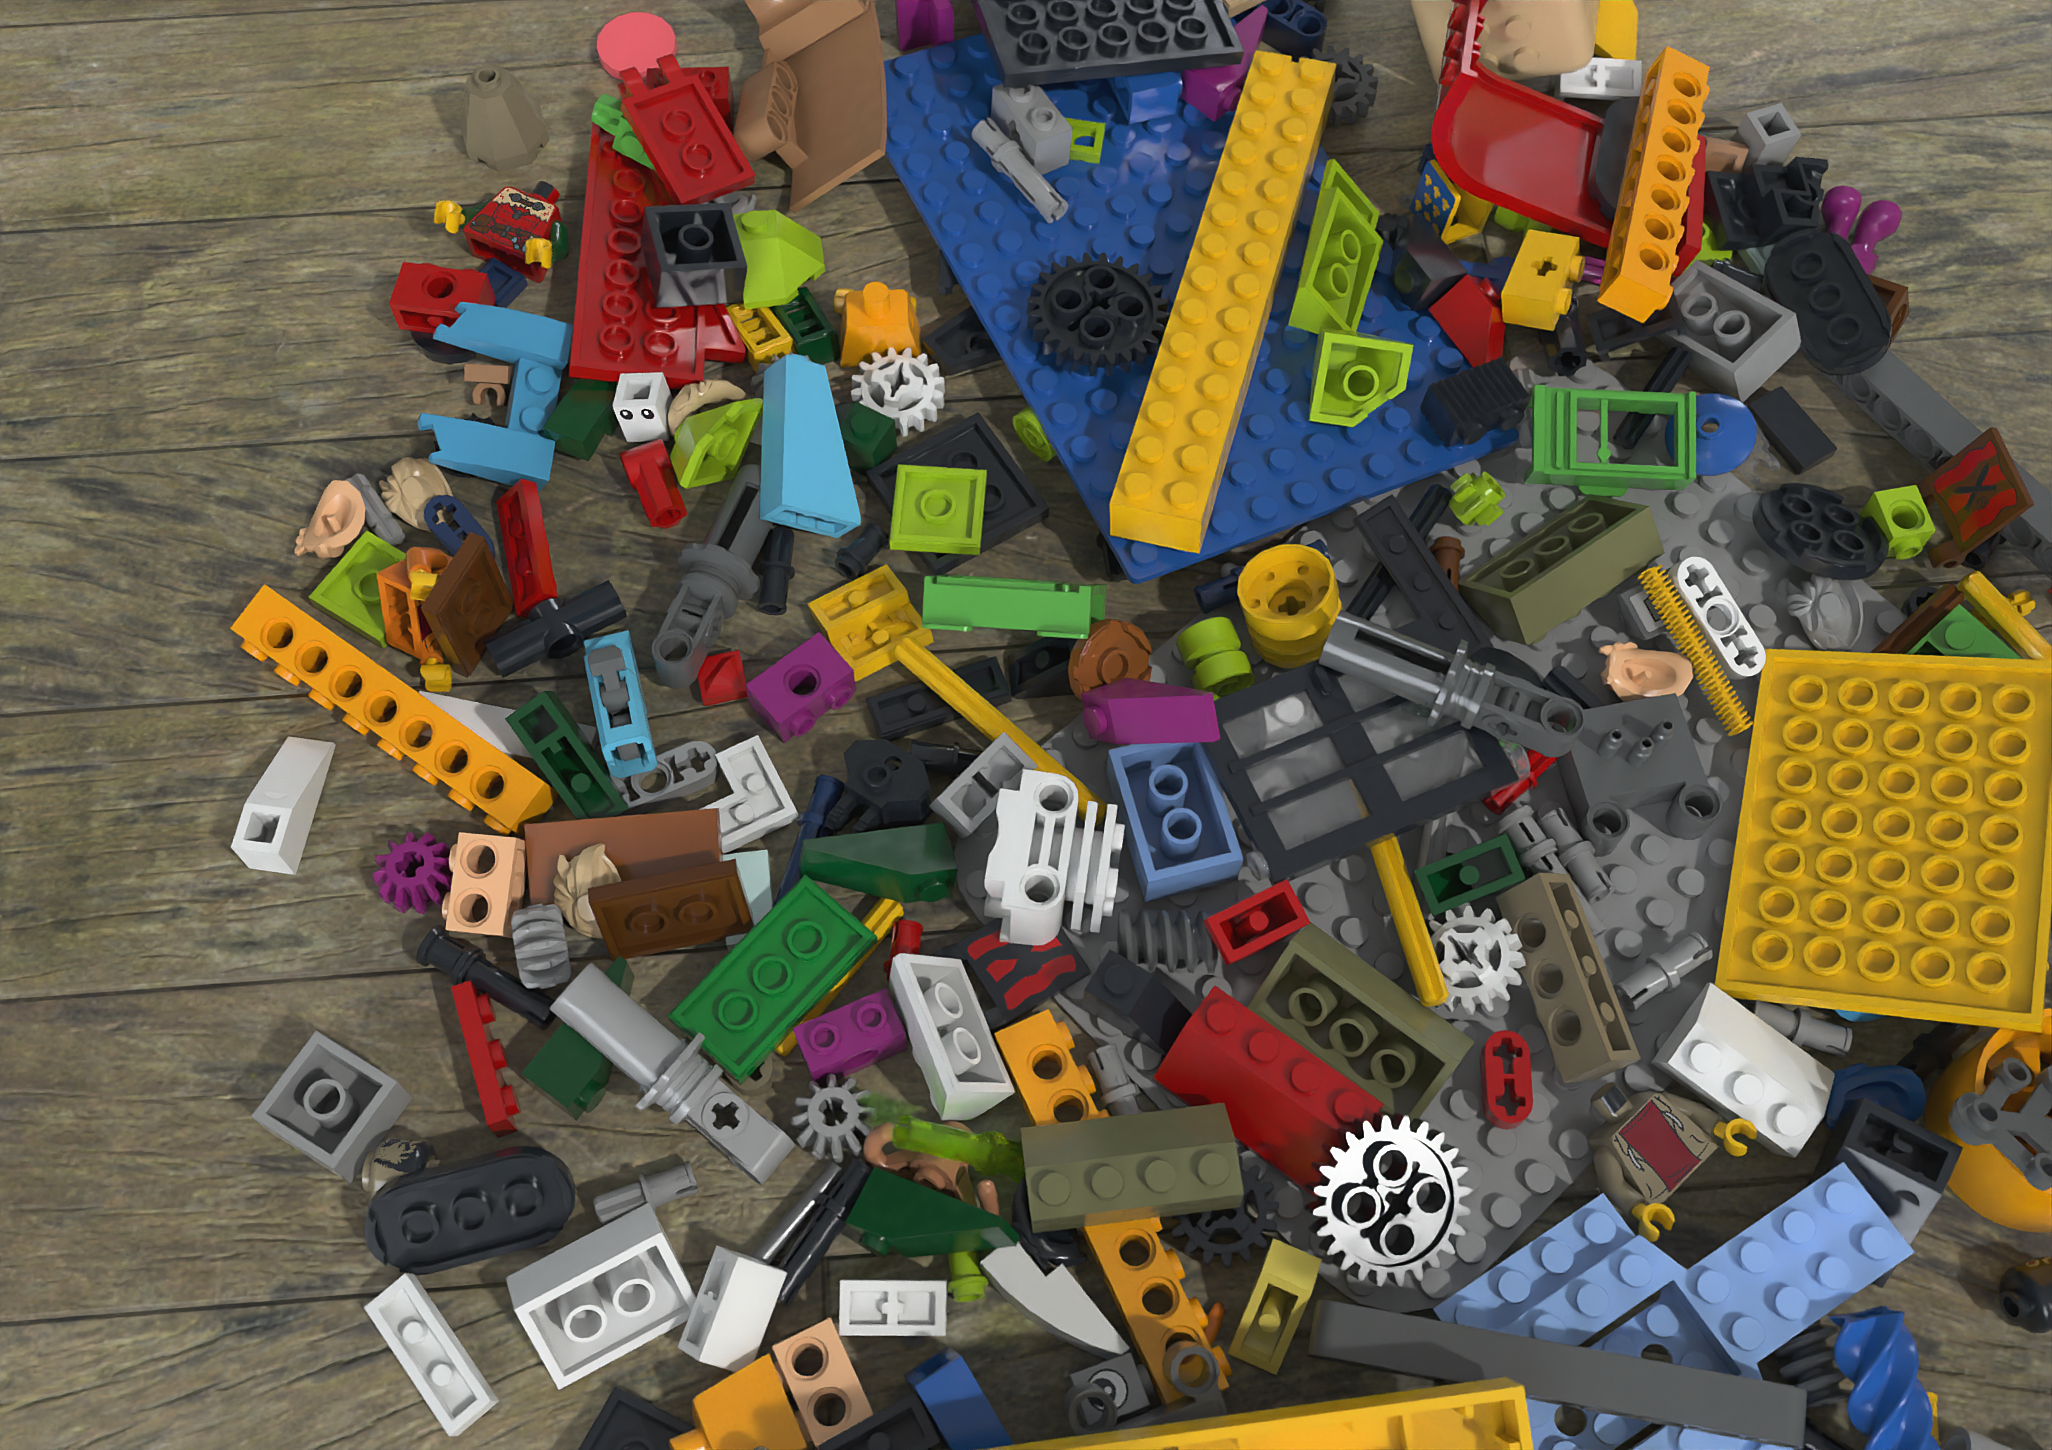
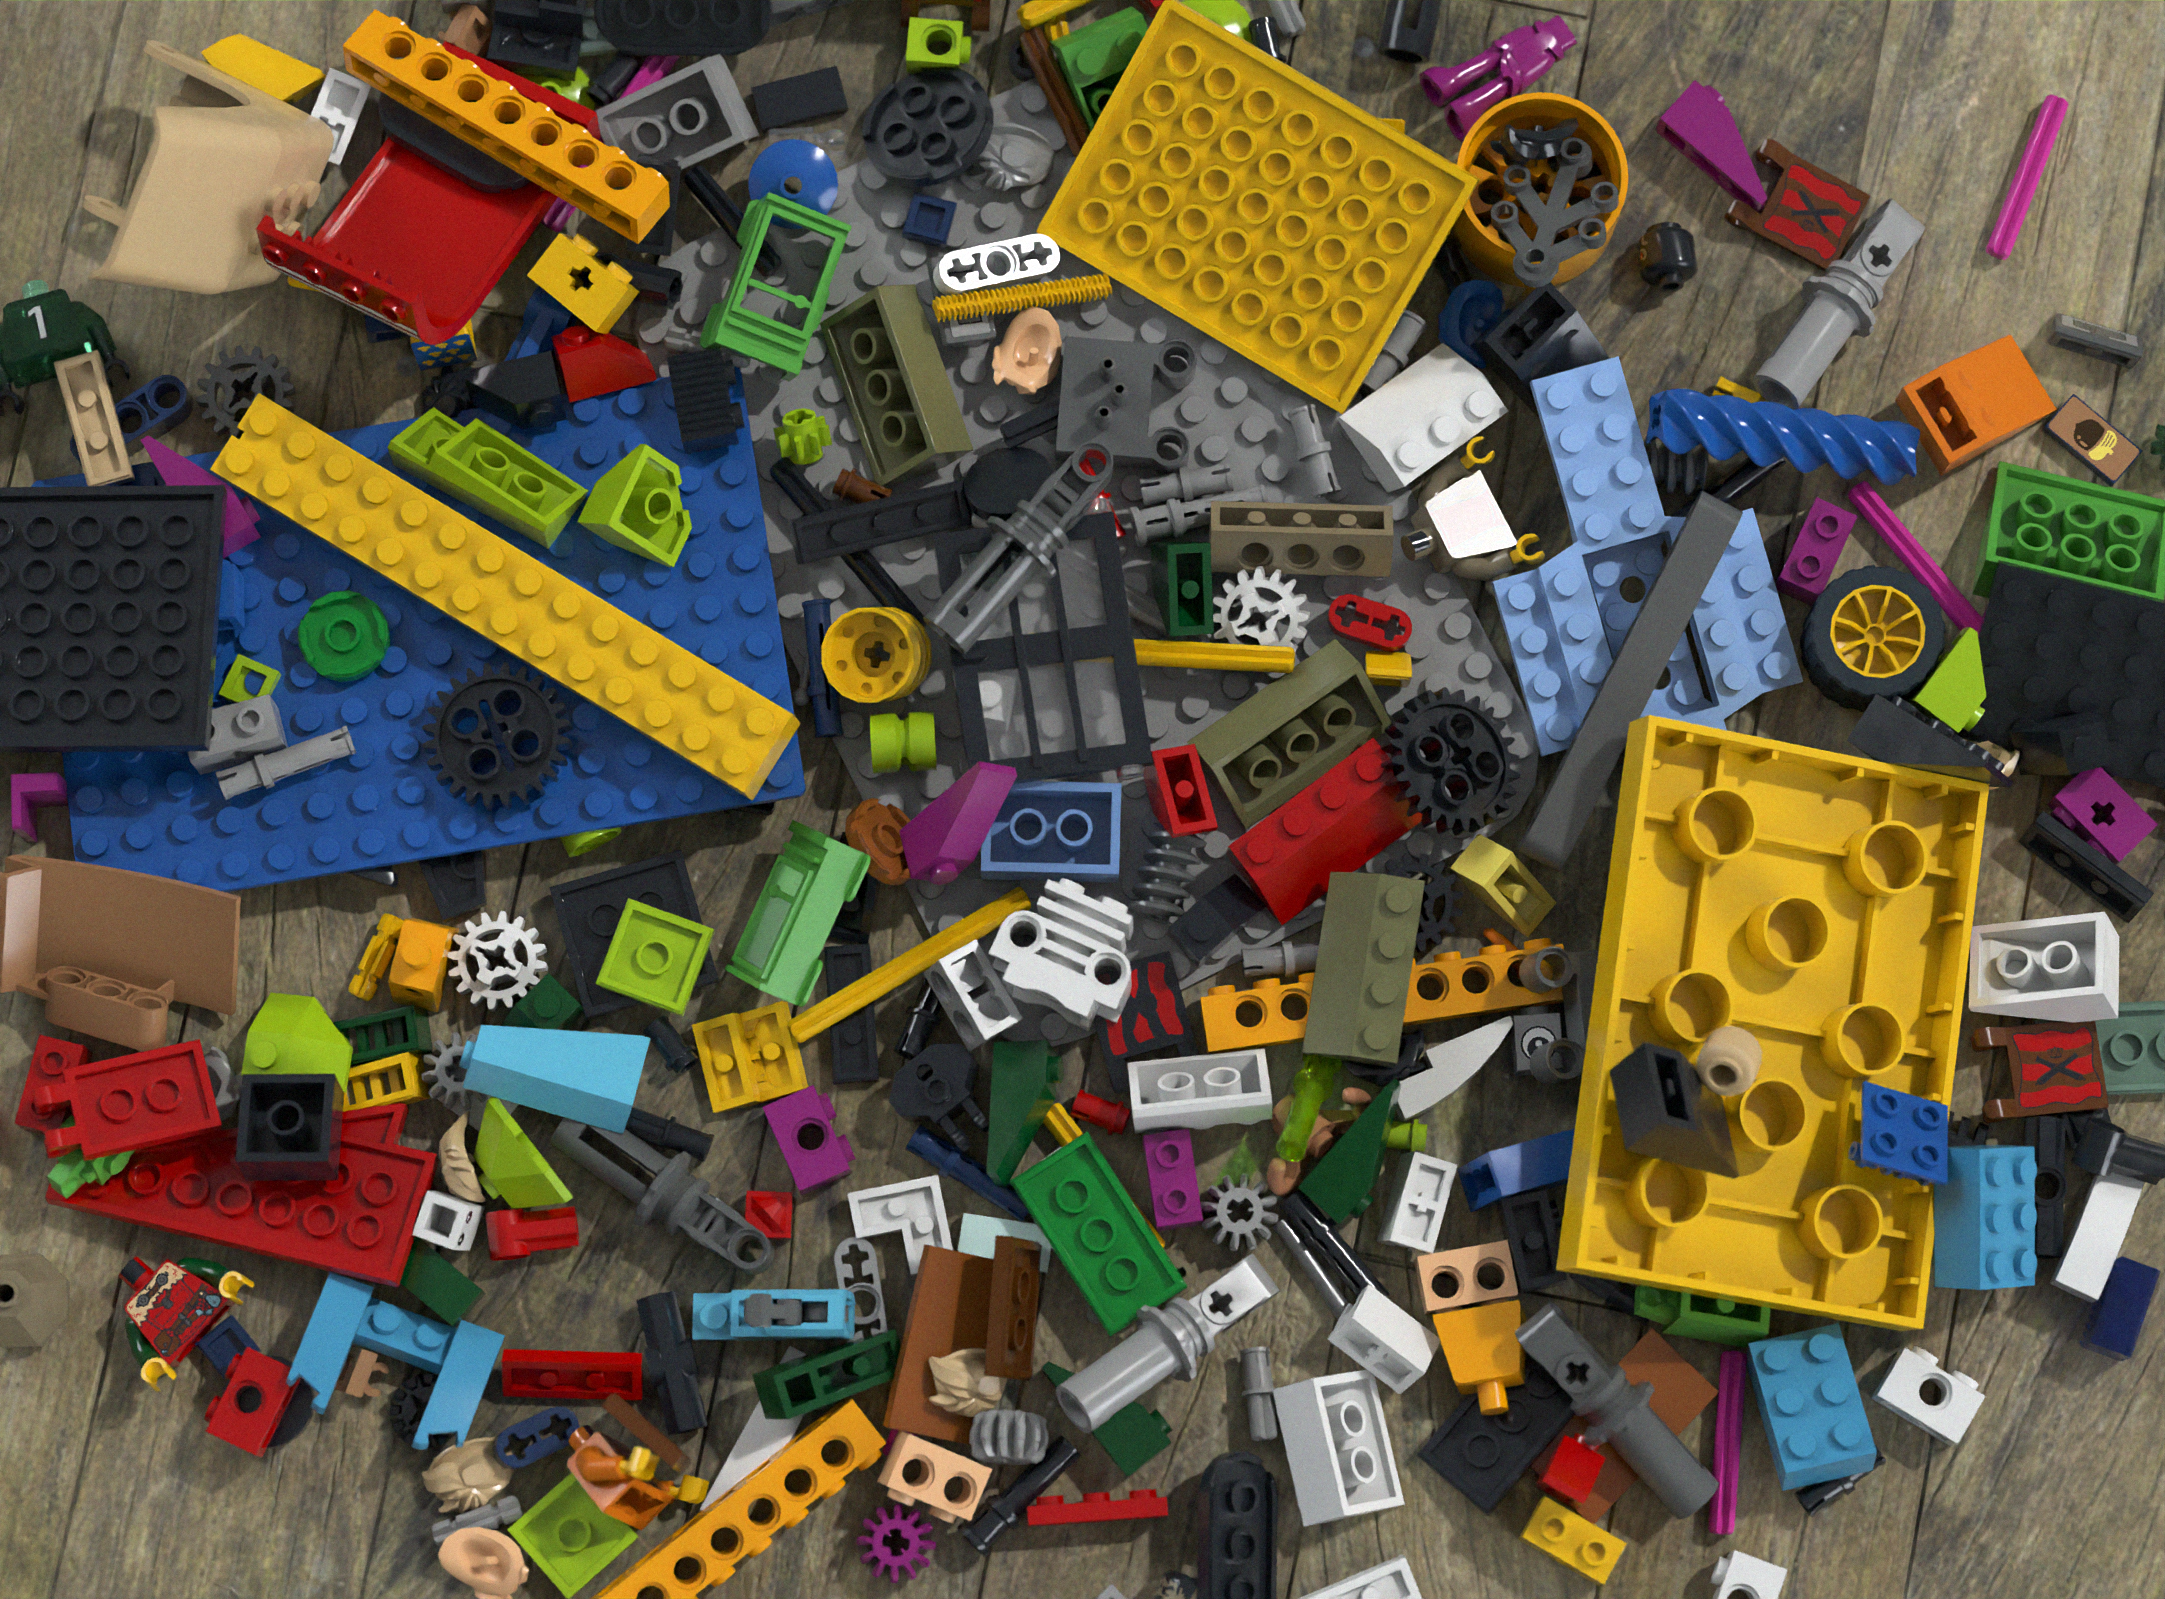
camera: 75 degrees left, 15 degrees up
(1139, 199) = (348, 650): none -> green tile
(1463, 1111) = (1388, 668): none -> yellow slope
(1732, 558) = (929, 220): none -> dark blue tile

